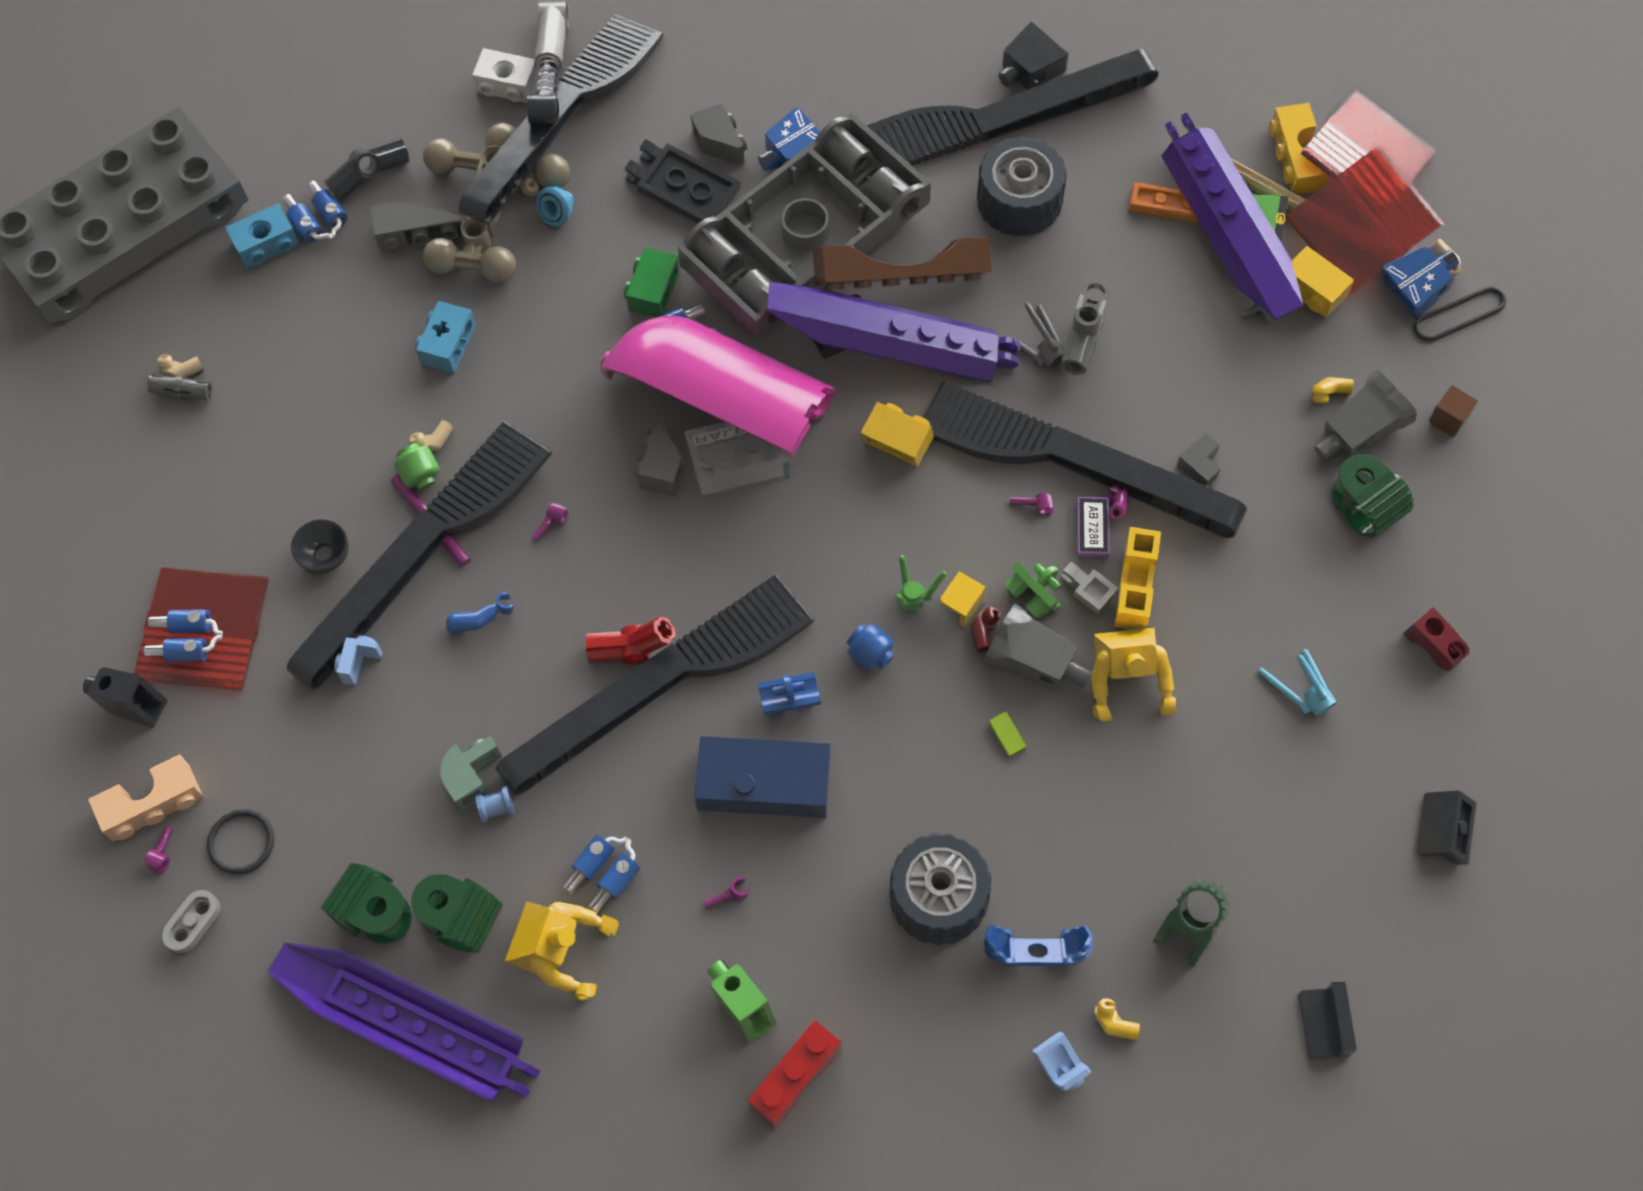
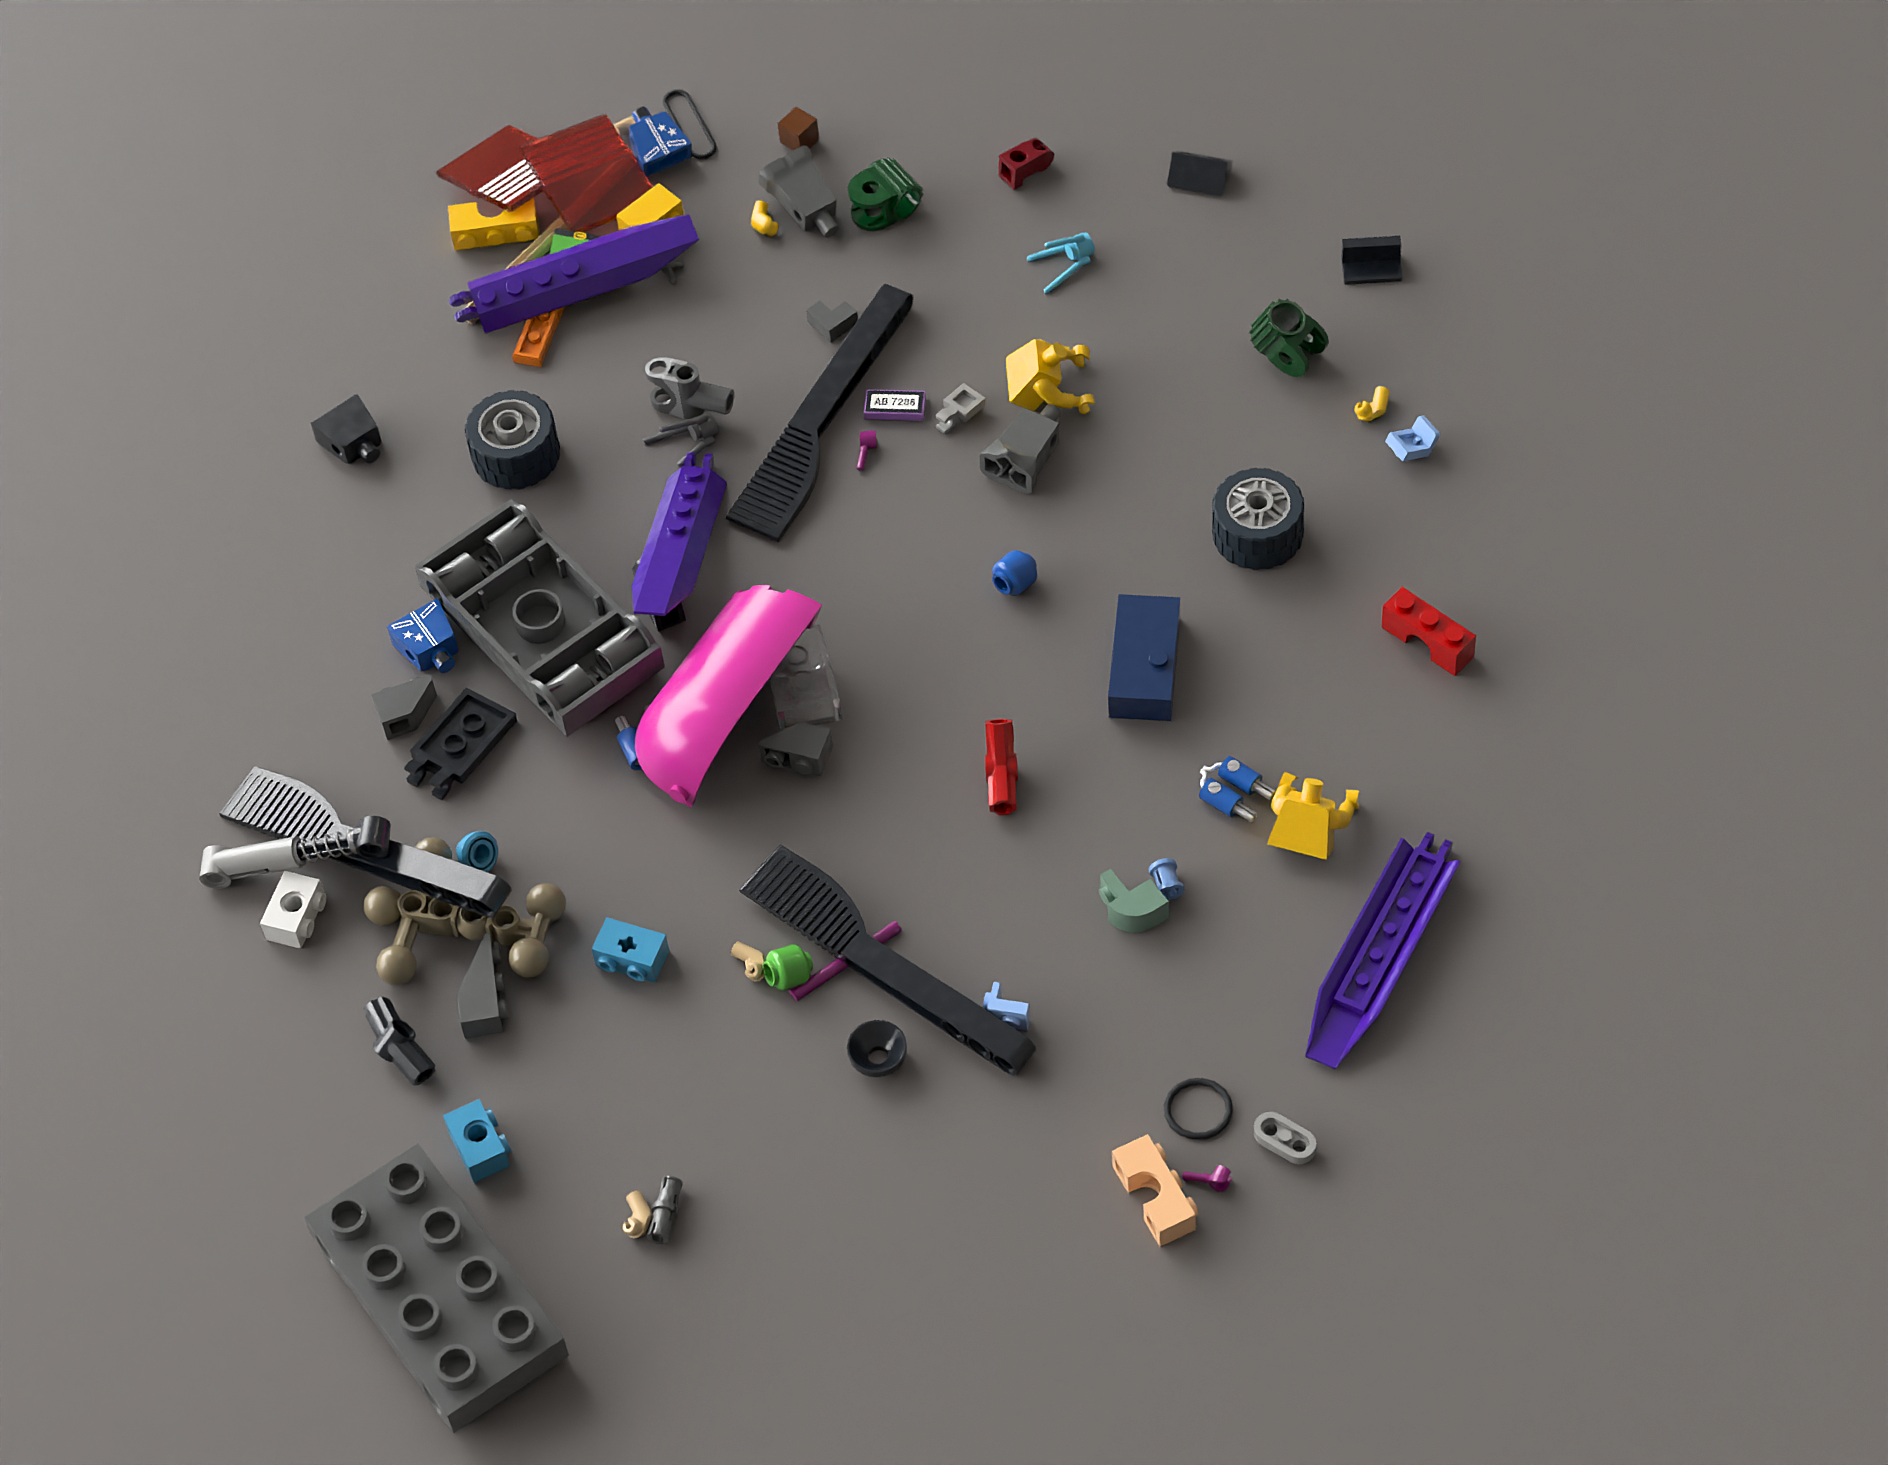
camera: 85 degrees left, 10 degrees down
(114, 690) = (1041, 1216): black torso -> none
(185, 648) = (989, 1167): blue piece -> none
(234, 605) = (958, 1166): clear red piece -> none
(306, 223) = (445, 1080): blue piece -> none
(358, 900) = (1271, 978): dark green piece -> none
(464, 919) = (1280, 899): dark green piece -> none
(472, 621) = (967, 907): blue arm -> none
(554, 513) = (849, 846): magenta hand -> none
(652, 282) = (584, 761): green brick -> none
(721, 645) = (999, 691): black piece -> none
(729, 894) = (1254, 687): magenta hand -> none
(741, 1000) = (1362, 667): bright green torso -> none
(789, 693) = (1061, 637): blue hips -> none
(847, 265) = (594, 492): reddish brown arch -> none
(897, 433) = (786, 547): yellow brick -> none
(913, 593) = (959, 542): bright green plant -> none
(944, 128) = (422, 511): black piece -> none
(963, 597) = (966, 497): yellow panel -> none
(982, 625) = (993, 492): dark red arm -> none
(1007, 734) = (1102, 477): lime piece -> none
(1043, 600) = (949, 454): bright green hips -> none
(1067, 951) = (1310, 433): blue piece -> none
(1120, 500) = (873, 381): magenta arm -> none
(1137, 579) = (937, 366): yellow arch -> none

